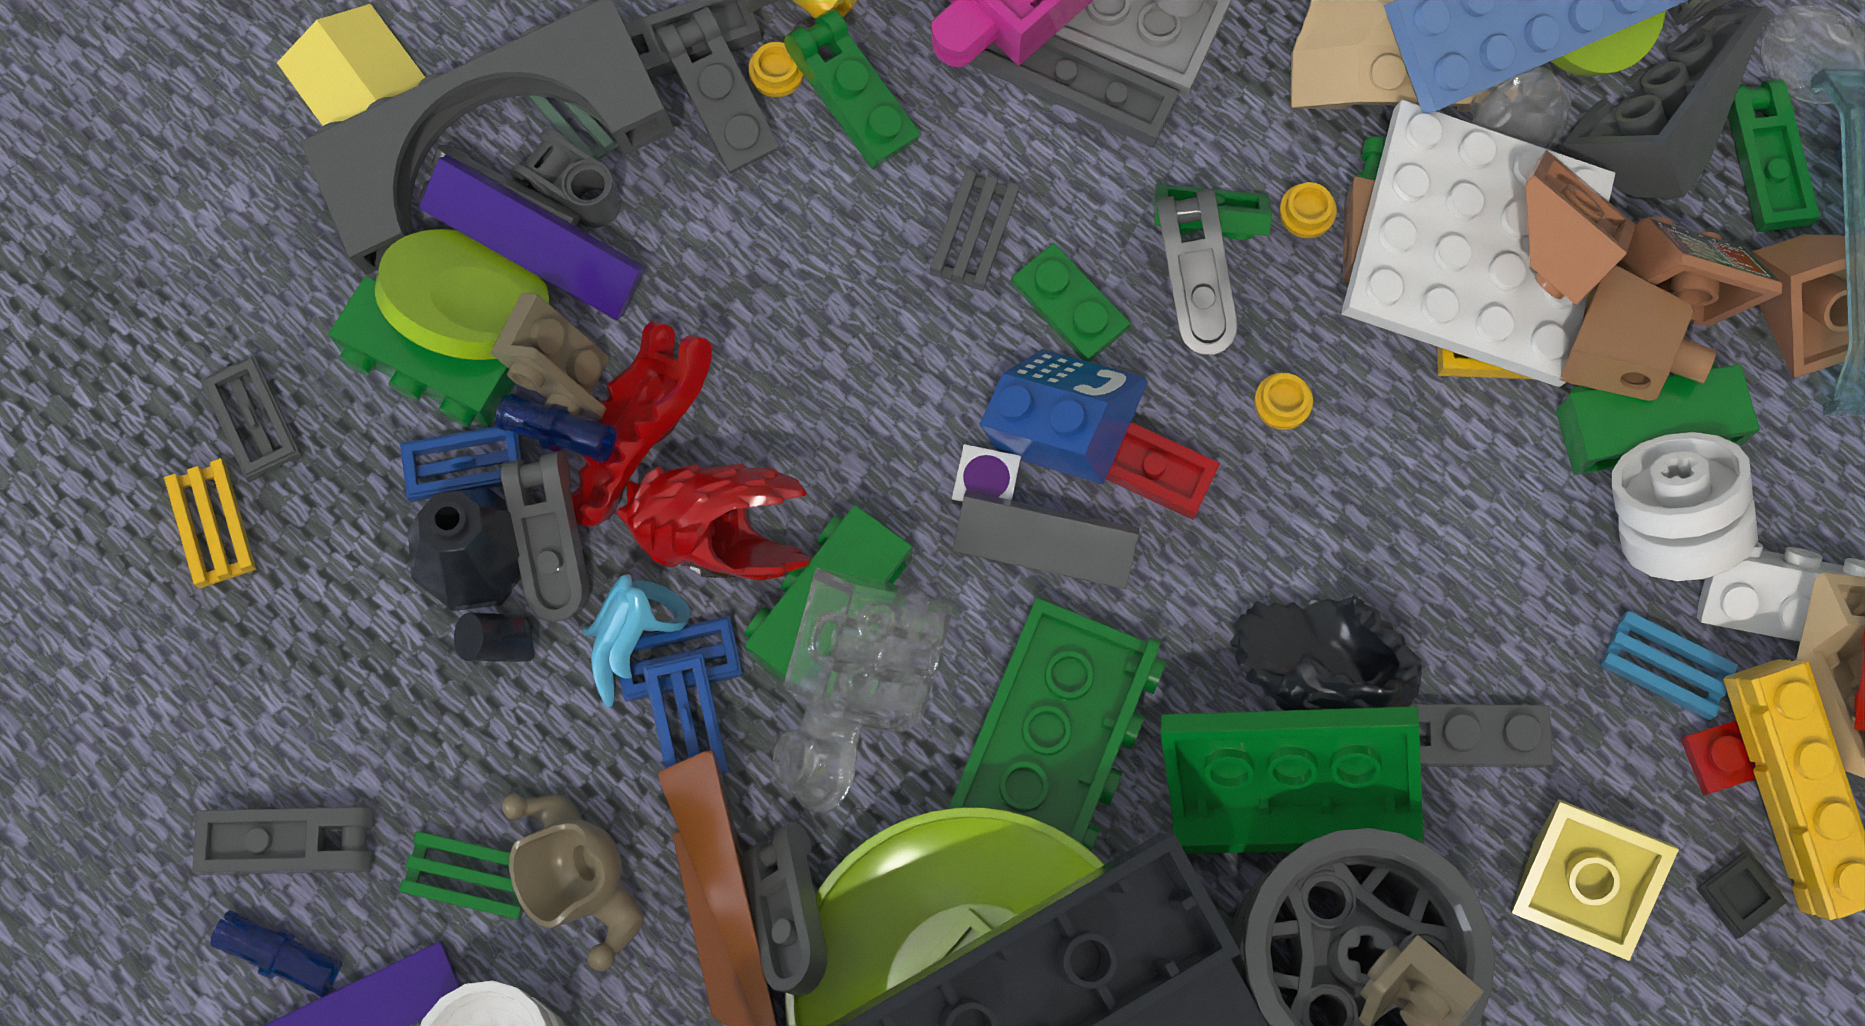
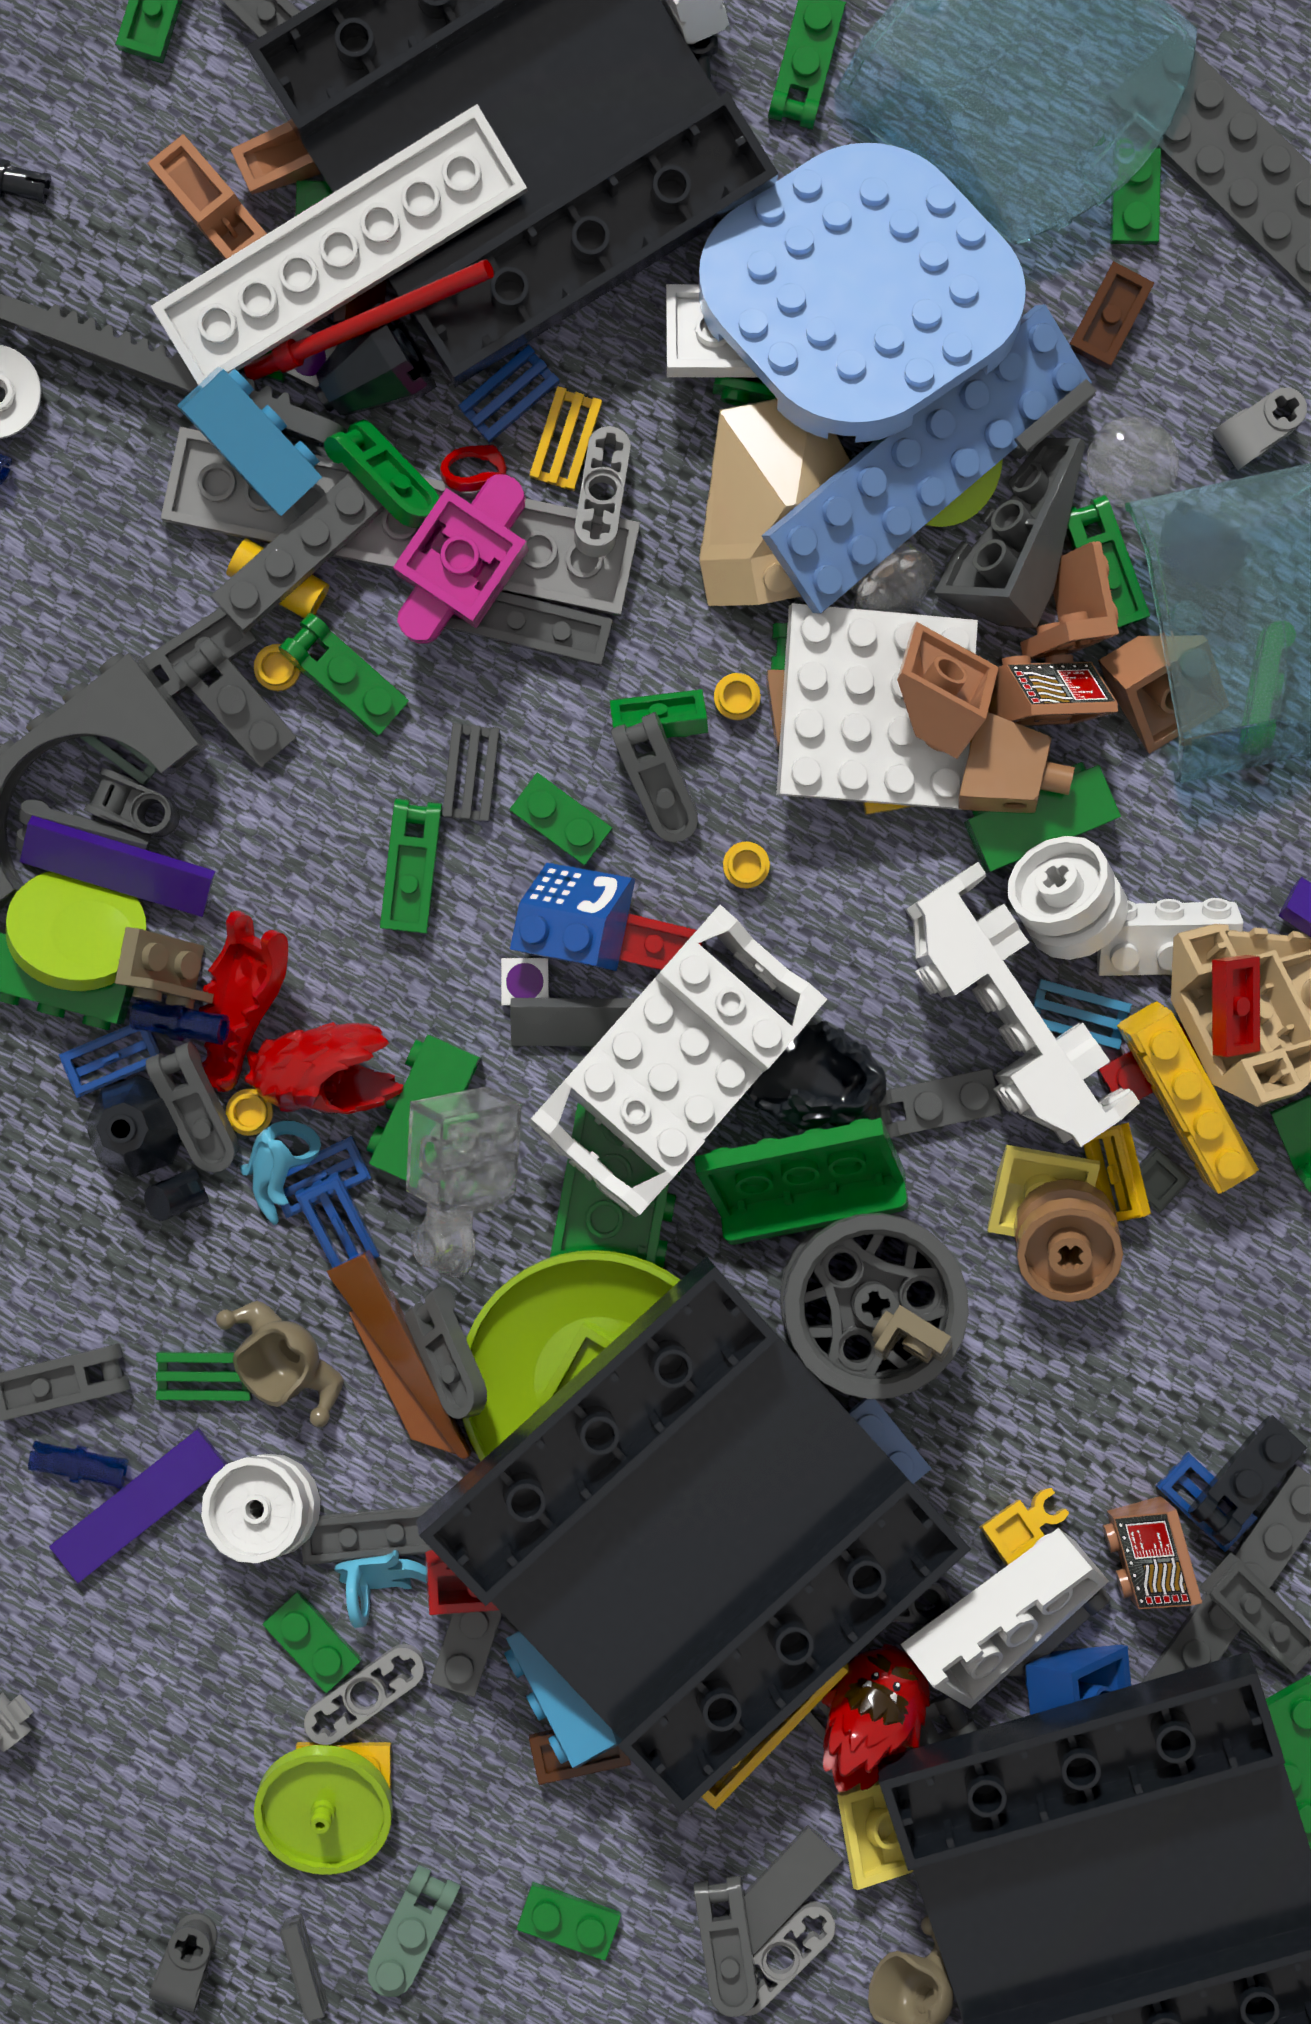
camera: 20 degrees left, 15 degrees up
(611, 557) = (249, 1112): none -> yellow plate
(878, 320) = (410, 868): none -> green plate
(1159, 595) = (679, 1059): none -> white piece
(1631, 975) = (1068, 1240): none -> medium nougat wheel
(1639, 709) = (1049, 1077): none -> white piece
(1715, 873) = (1122, 1171): none -> yellow tile
(1744, 179) = (1082, 606): none -> nougat bracket

